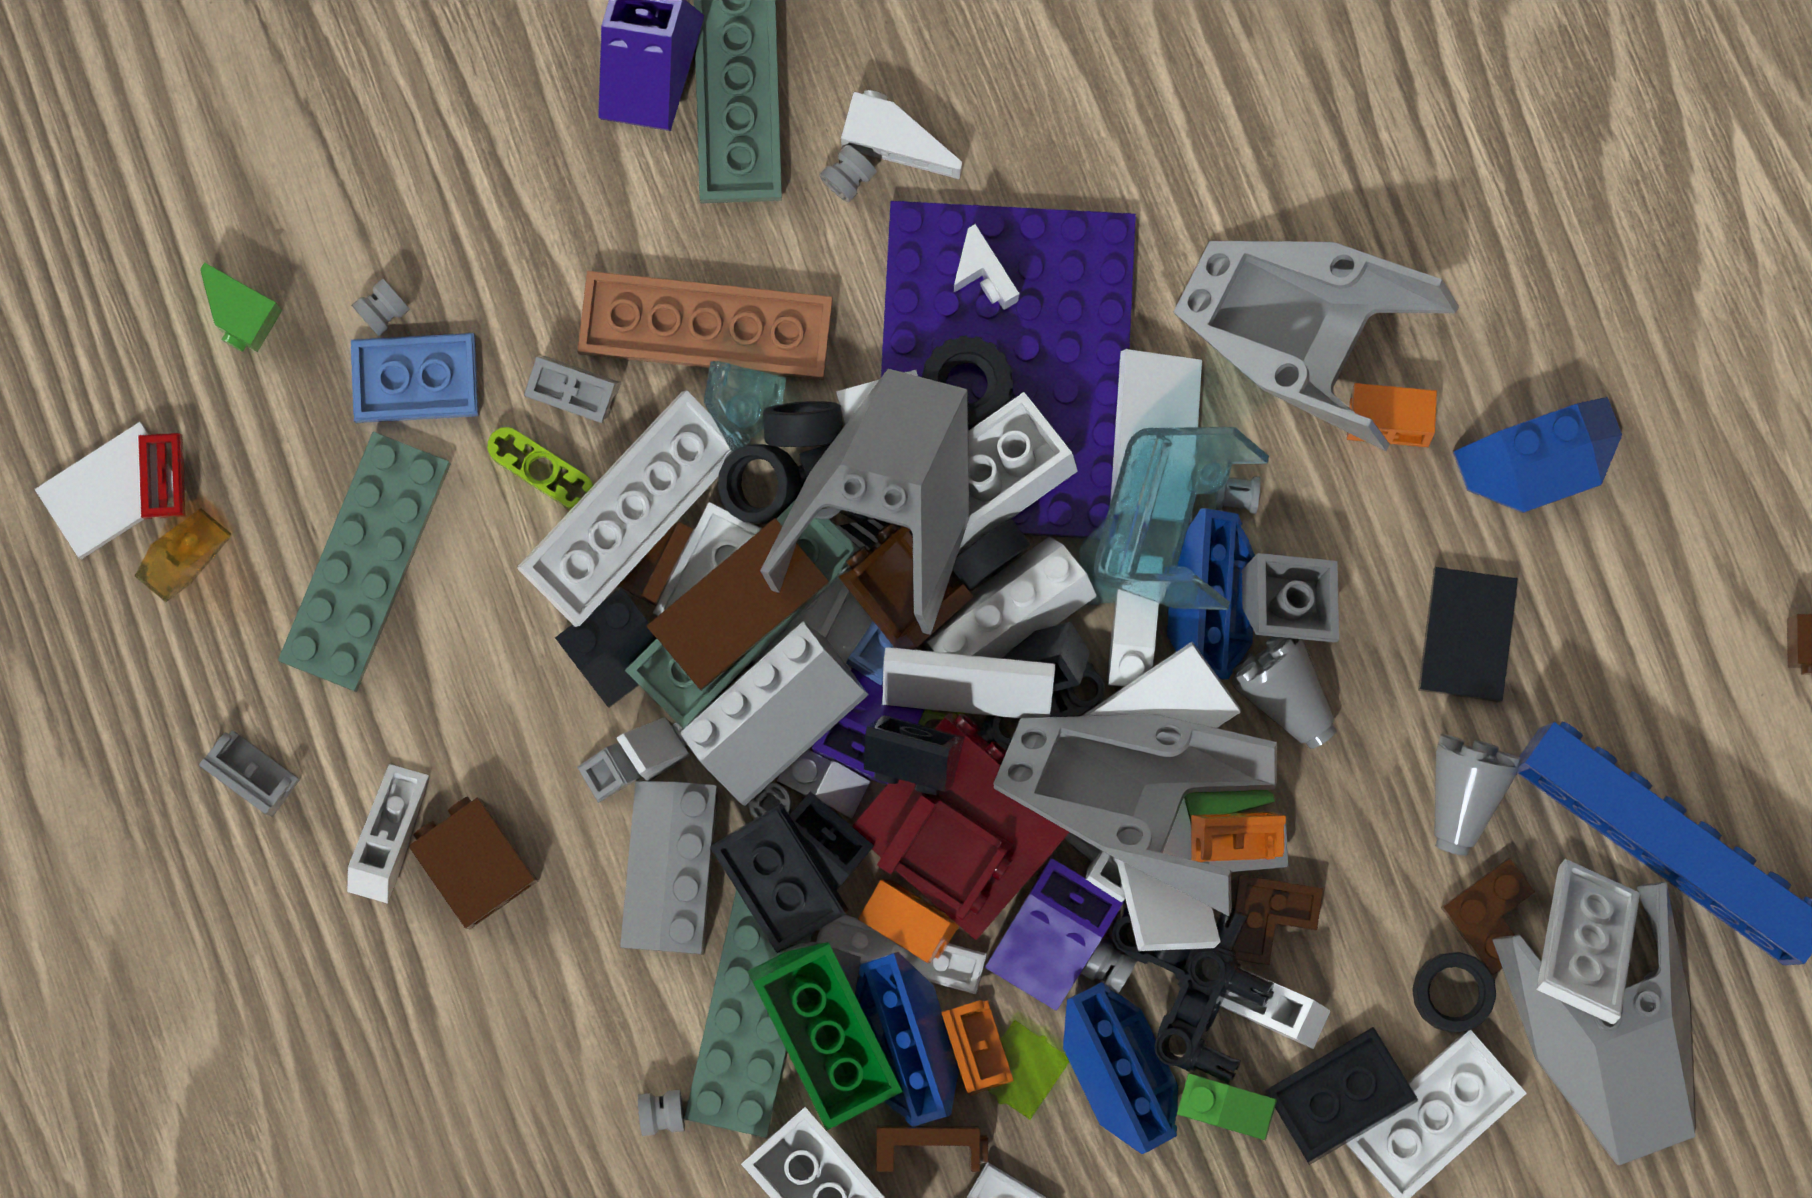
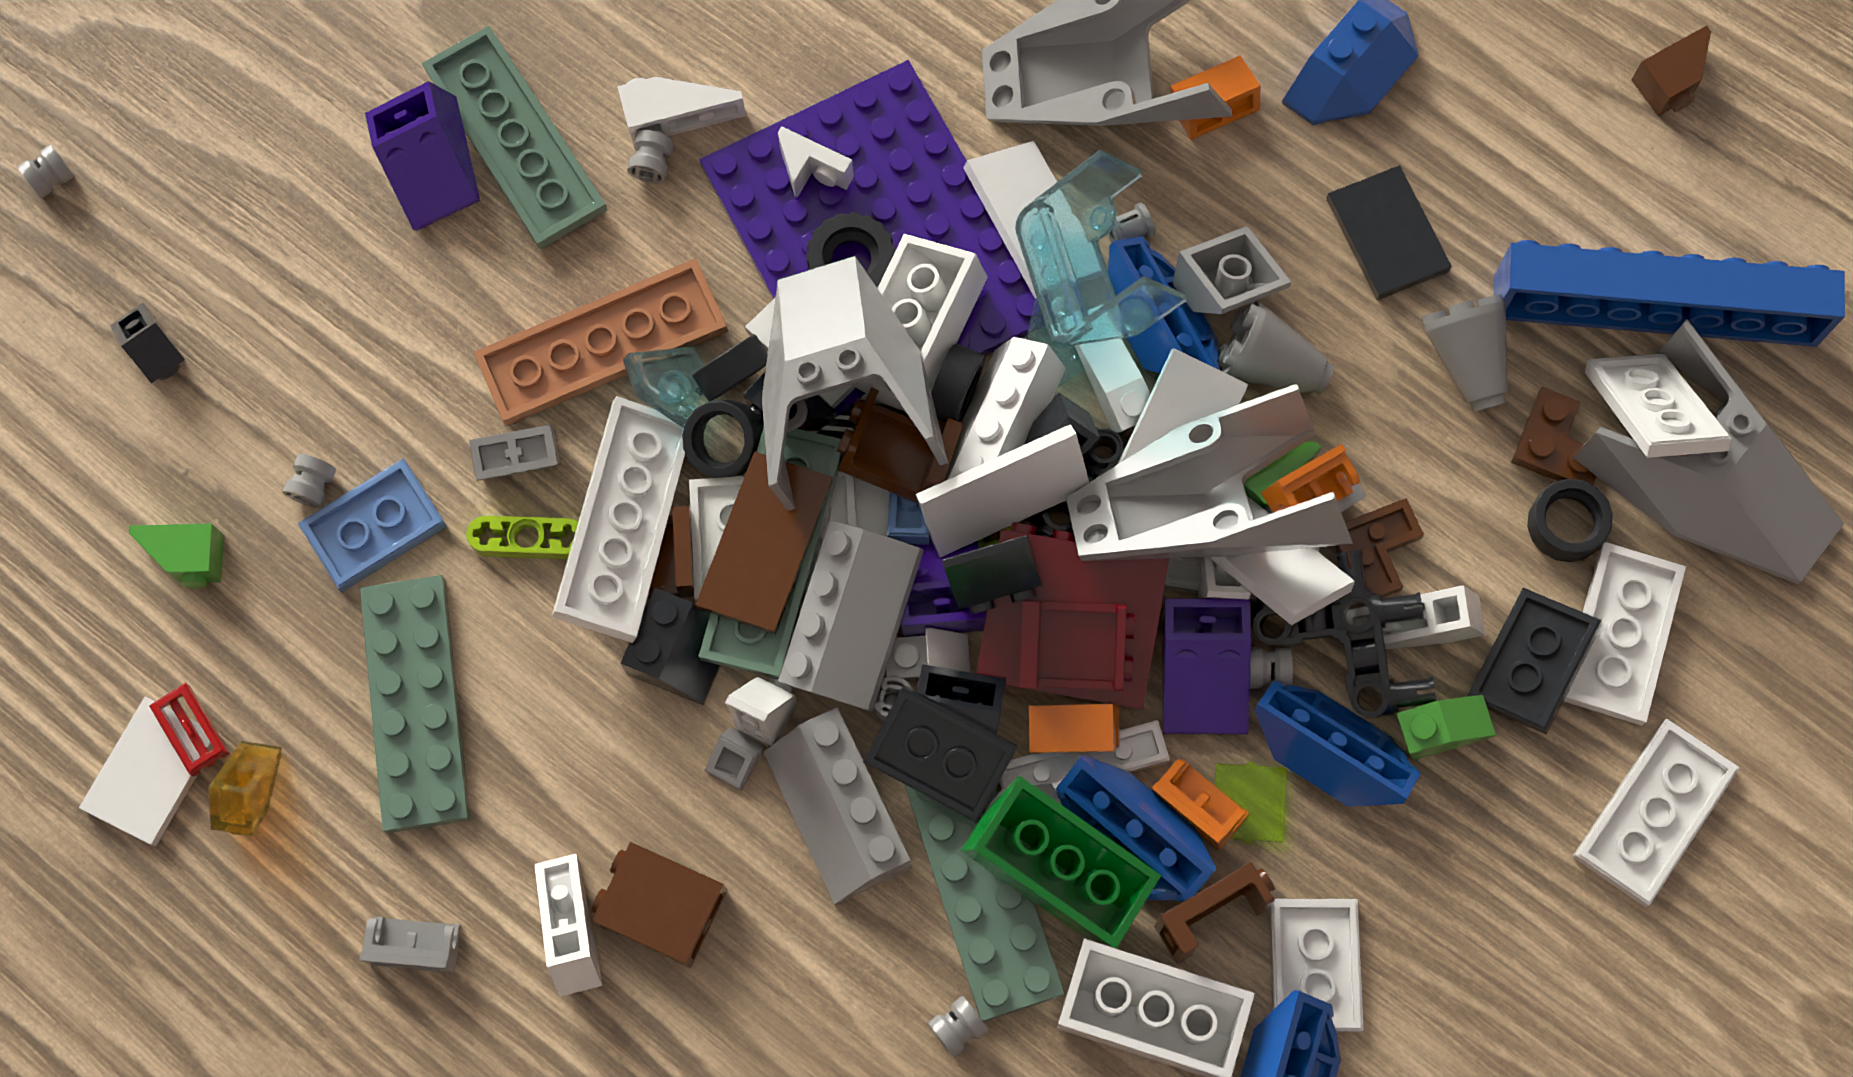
camera: 25 degrees left, 10 degrees down
(306, 92) = (147, 344): none -> black slope

